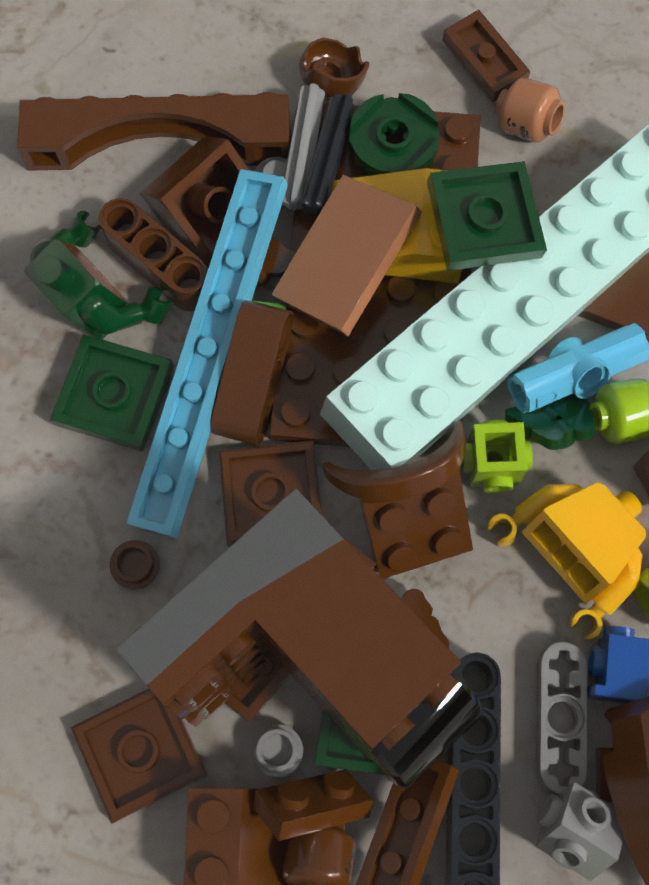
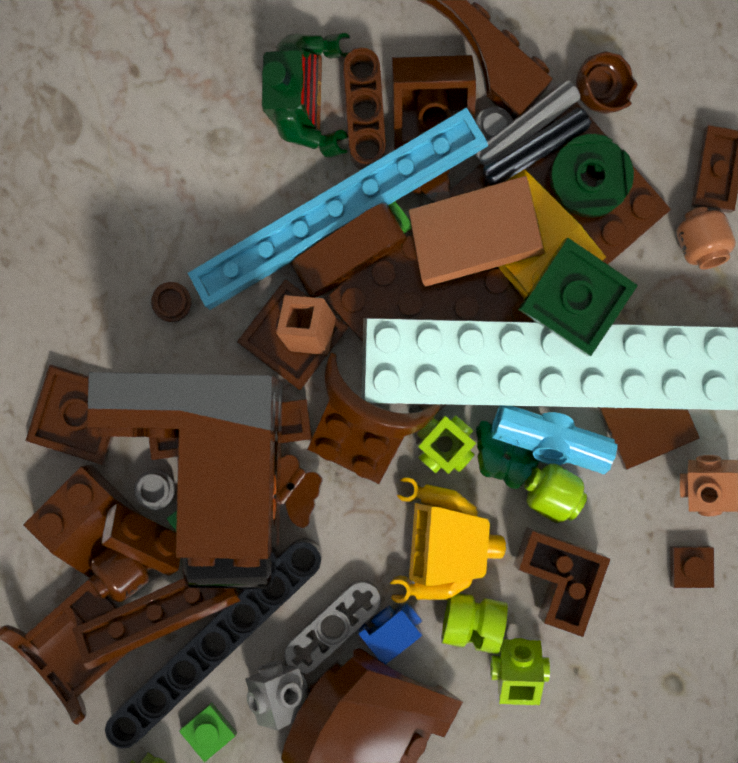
camera: 40 degrees right, 15 degrees up
(112, 392) = (255, 178): dark green plate -> none
(276, 461) = (306, 325): none -> nougat brick

